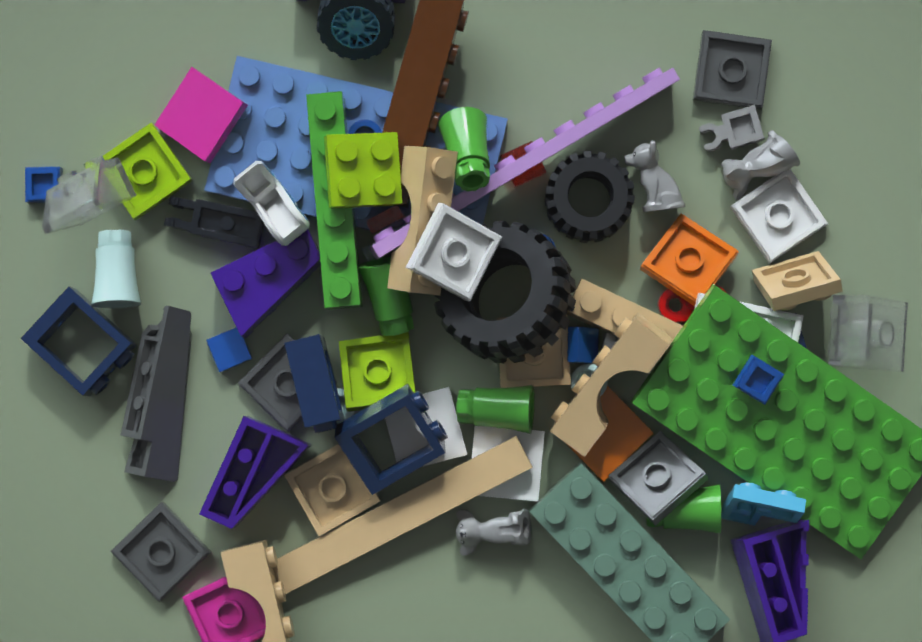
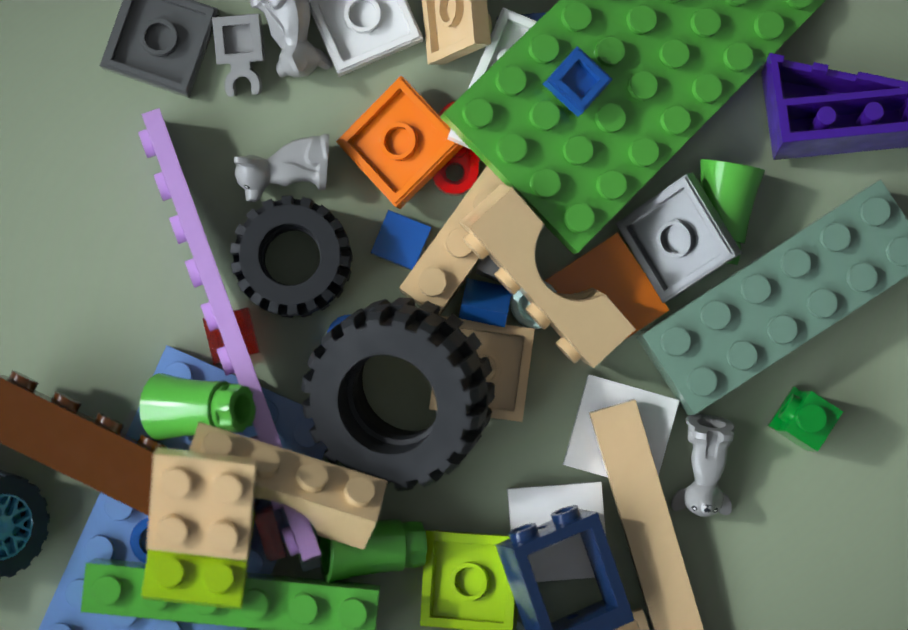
camera: 85 degrees left, 0 degrees up
(400, 164) = (201, 503): none -> tan plate
(454, 252) = (333, 452): white tile -> none
(498, 407) = (547, 430): bright green plant -> none
(542, 596) = (805, 419): none -> green brick
(617, 274) = (400, 240): none -> blue tile
(748, 503) = (734, 124): medium azure plate -> none

